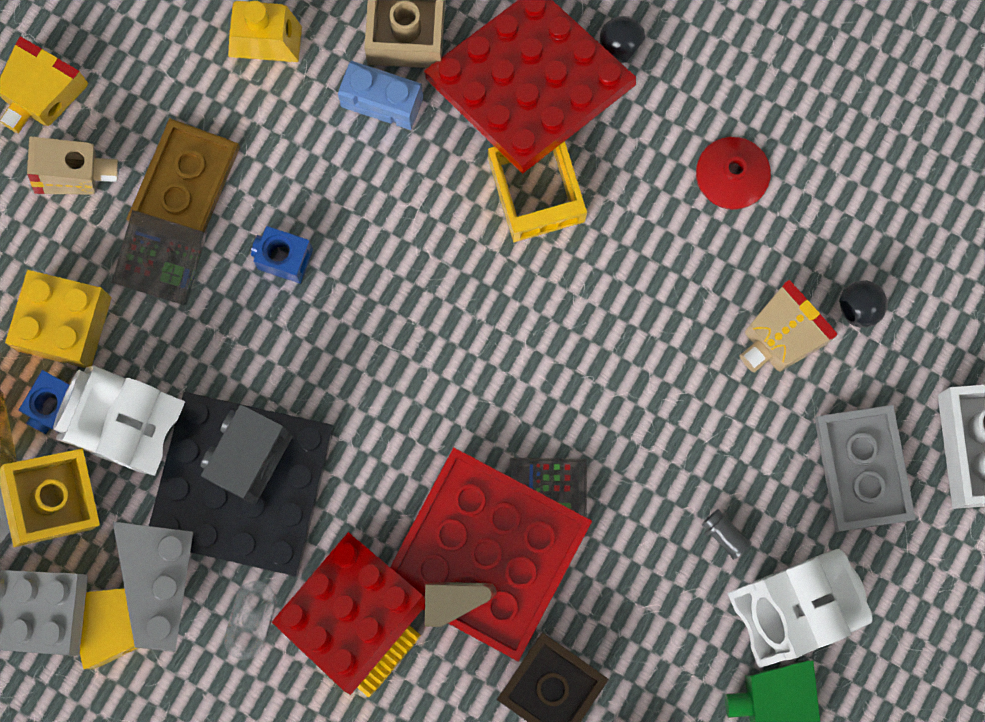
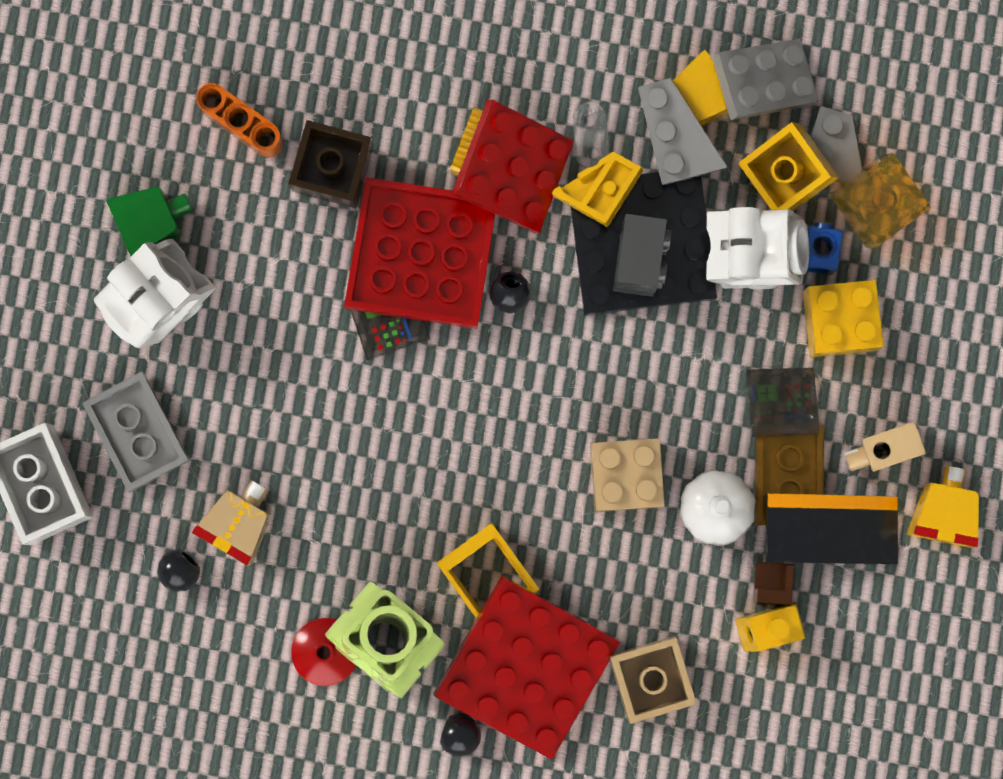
camera: 160 degrees right, 5 degrees up
(162, 109) = (831, 529): none -> black slope
(244, 77) = (773, 583): none -> reddish brown panel
(261, 552) = (601, 188): none -> yellow wing
(270, 169) = (717, 507): none -> white piece
(293, 266) = (666, 433): blue brick -> none
(352, 236) = (627, 475): none -> tan brick
(380, 95) = (650, 608): medium blue brick -> none
(404, 475) = (510, 292): none -> black piece
(453, 599) = (430, 200): dark tan tile -> none
(675, 181) = (394, 671): none -> yellowish green piece
(726, 534) = (232, 338): dark grey pin -> none

